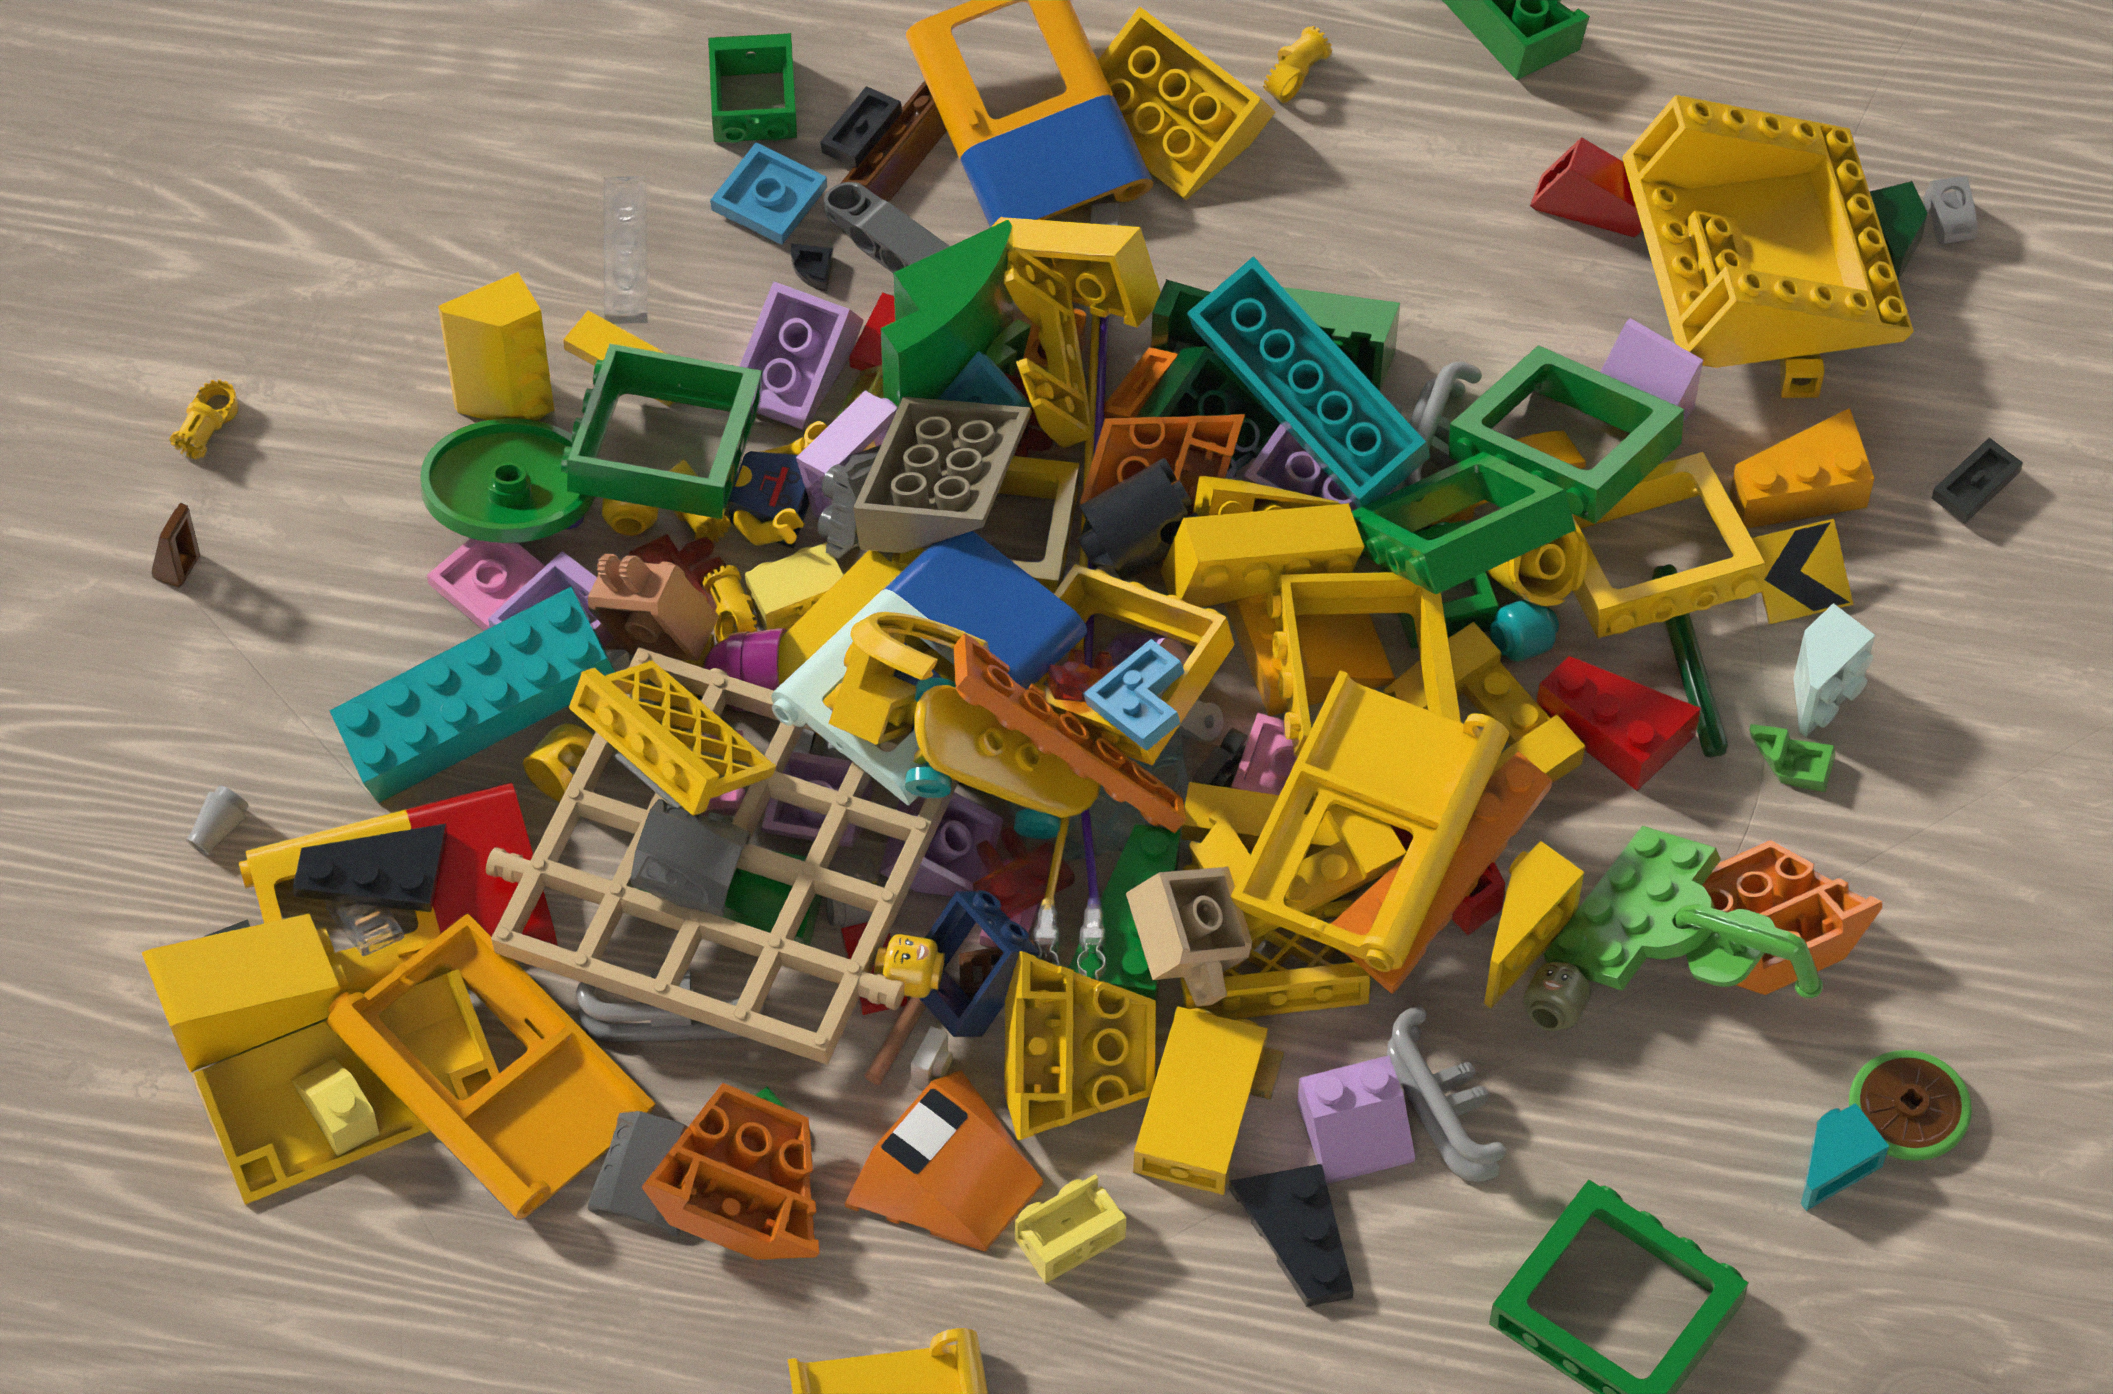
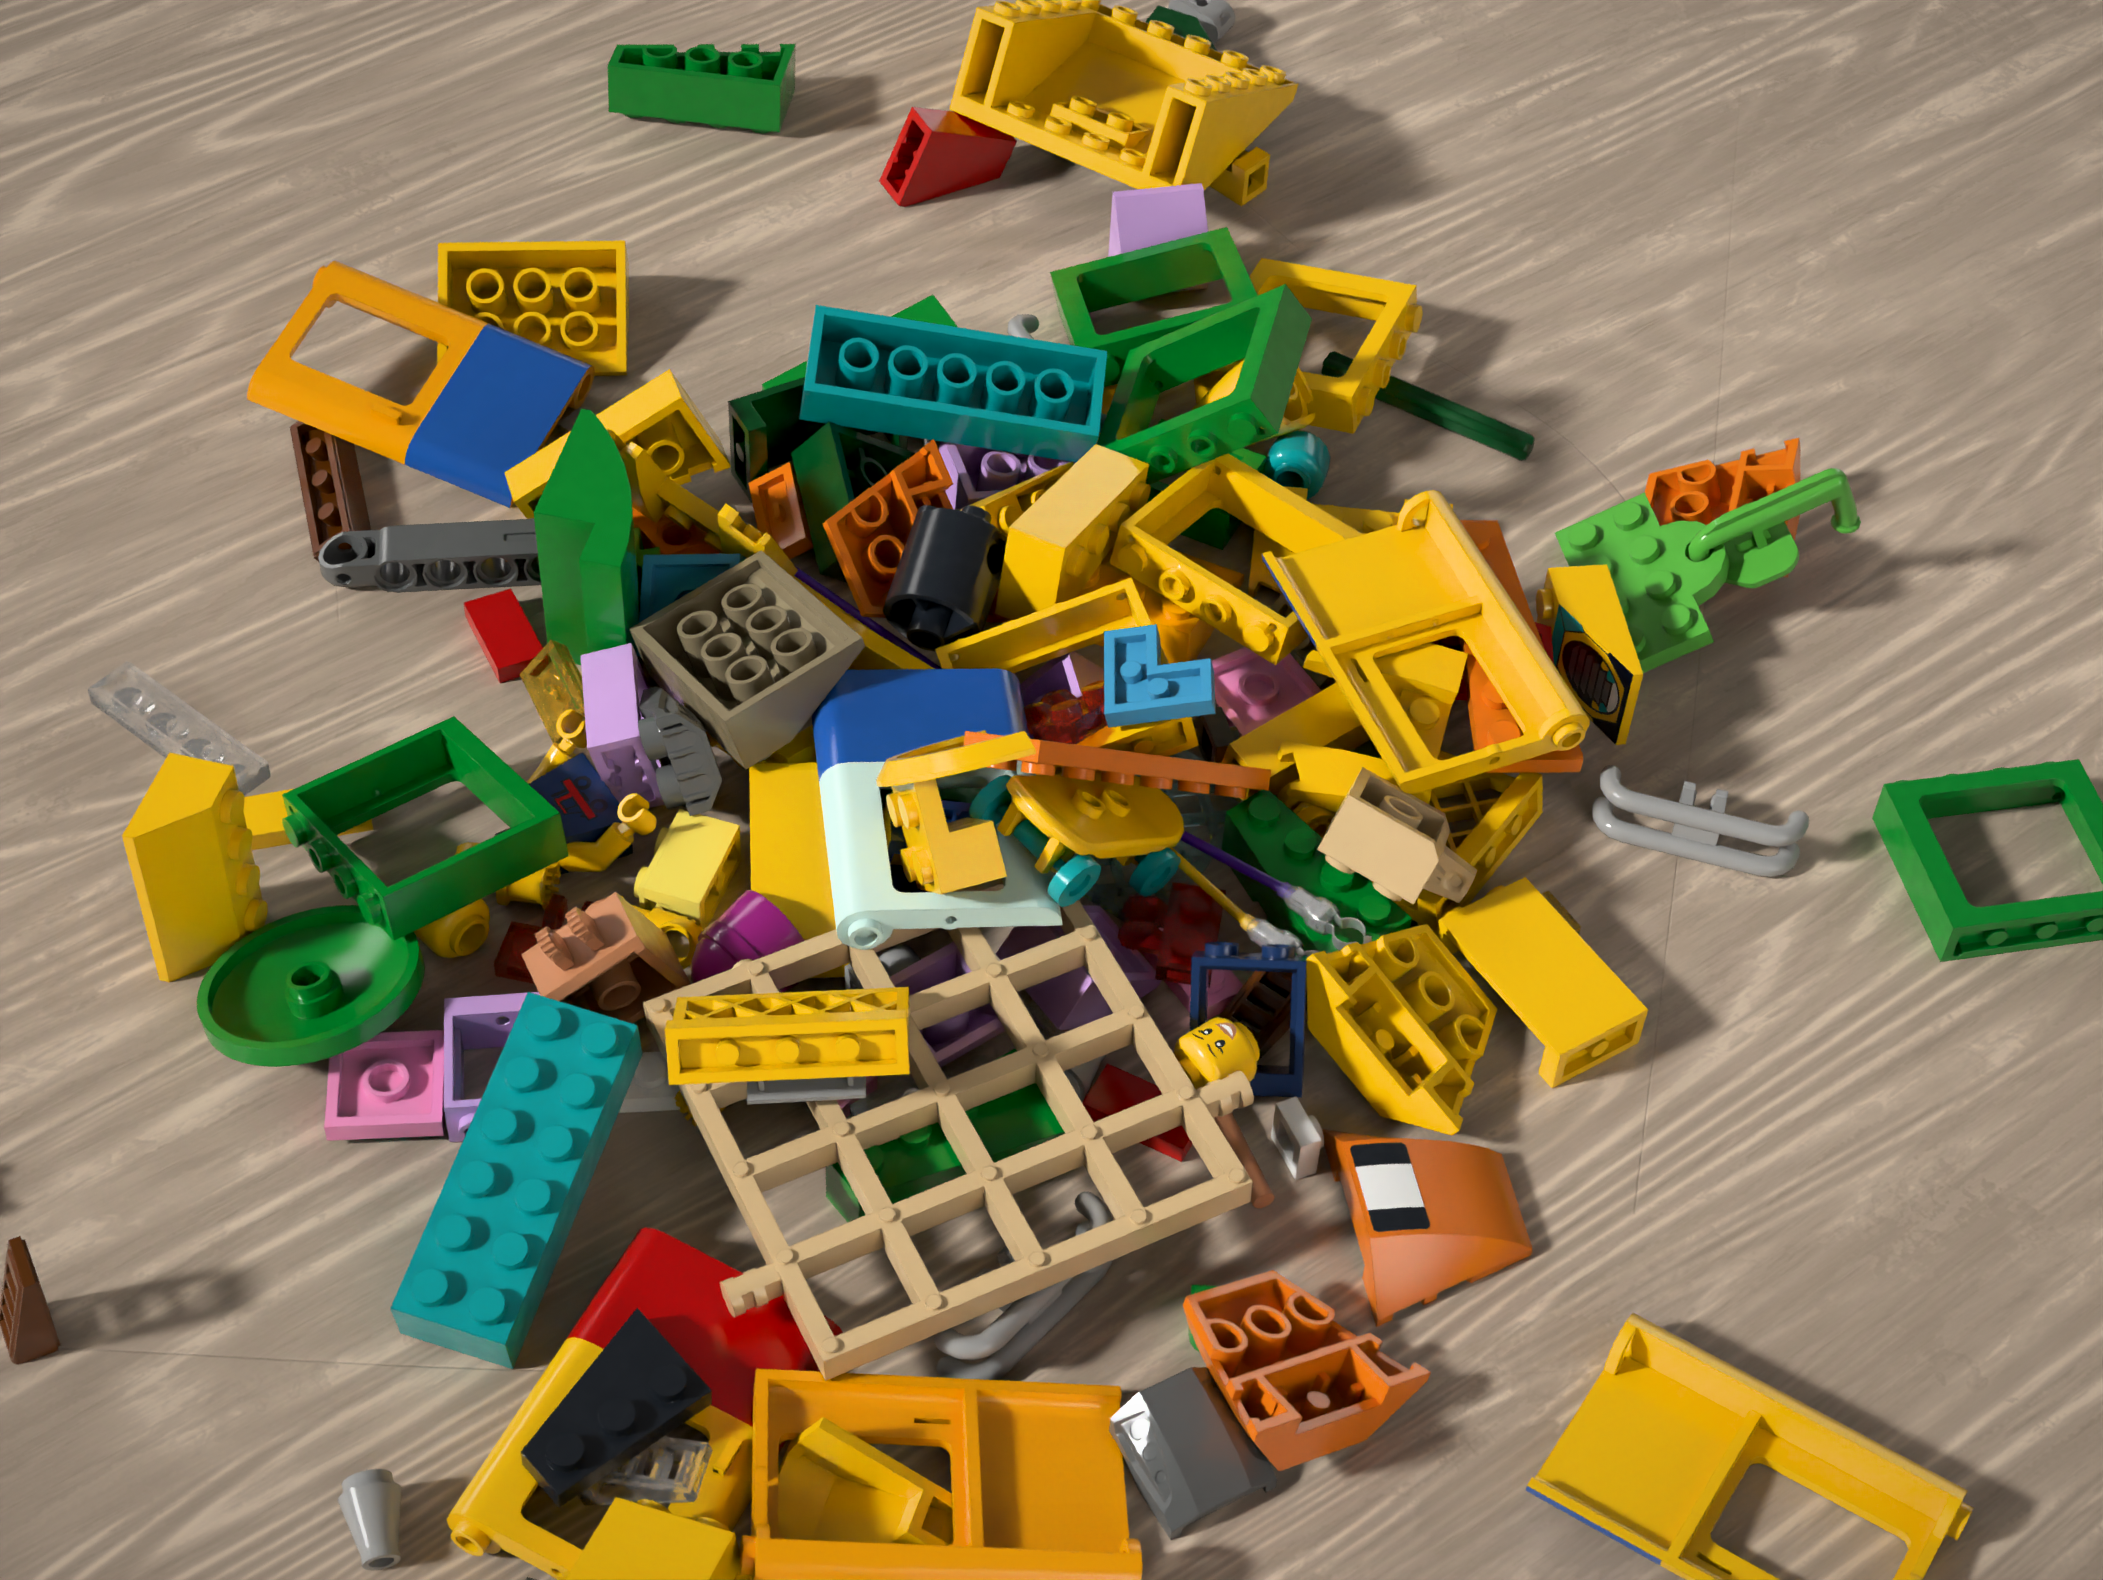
camera: 50 degrees left, 10 degrees down
(551, 758) = (666, 1154): yellow helmet -> none
(687, 858) = (933, 1125): dark grey slope -> none
(731, 57) = (136, 492): green window -> none
(768, 193) = (261, 600): dark azure plate -> none
(801, 351) = (447, 674): lavender slope -> none
(812, 264) = (367, 629): black tile -> none
(861, 127) = (283, 498): black plate -> none
(1069, 1228) = (1581, 1168): light yellow hinge -> none
(1295, 64) = (595, 217): yellow connector -> none
(1301, 1229) = (1732, 1011): black wing -> none
(1356, 1119) = (1663, 894): lavender slope -> none
(1556, 996) = (1673, 687): olive head -> none
(1617, 719) = (1462, 461): red wedge -> none
(1794, 761) = (1584, 416): bright green slope -> none
(1803, 571) = (1439, 289): piece -> none
(1805, 475) = (1347, 220): light orange wedge -> none
(1830, 667) = (1539, 329): light aqua slope -> none
(1841, 1154) = (1988, 635): teal slope -> none
(1931, 1085) = (1974, 570): reddish brown wheel -> none
(1977, 480) = (1447, 160): pearl dark grey plate -> none

